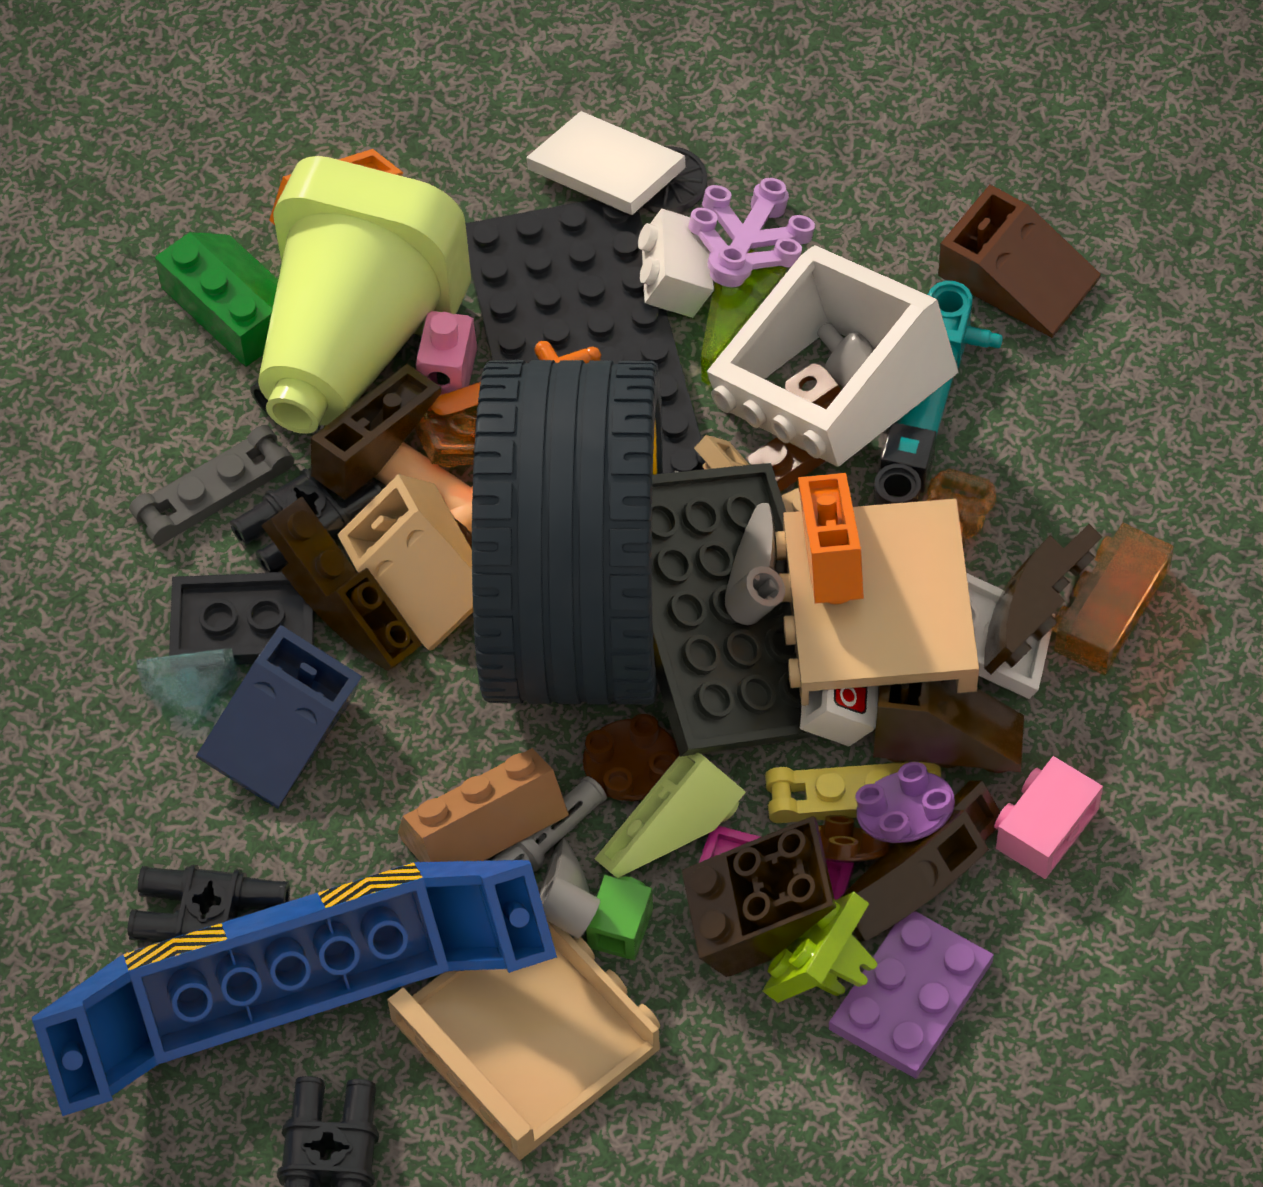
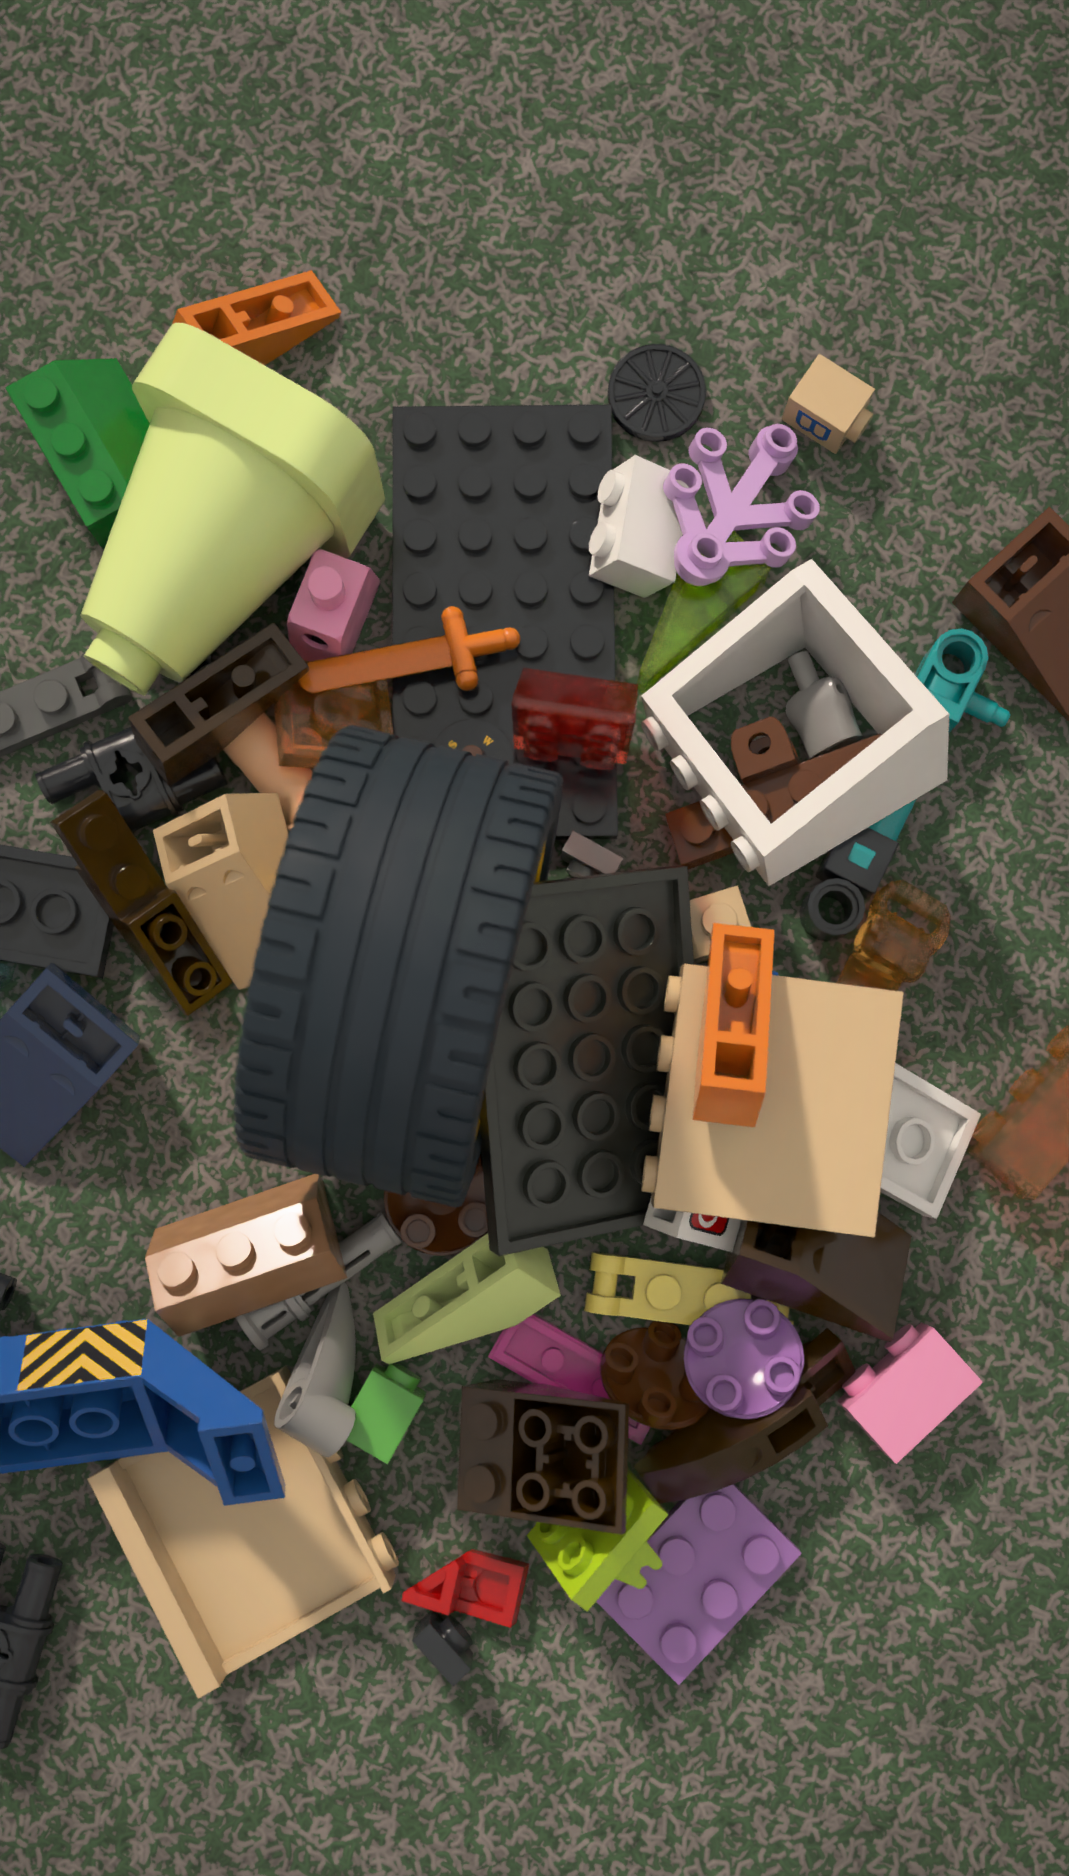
camera: 10 degrees right, 25 degrees up
(606, 162) = (586, 358): white tile -> none
(680, 375) = (573, 718): none -> clear red slope
(712, 1077) = (445, 1645): none -> black plate
(718, 453) = (637, 816): tan plate -> none
(727, 1039) = (474, 1585): none -> red slope
(753, 582) = (633, 1023): light grey piece -> none
(805, 159) = (829, 405): none -> tan brick
(1033, 597) = (952, 1115): dark brown slope -> none

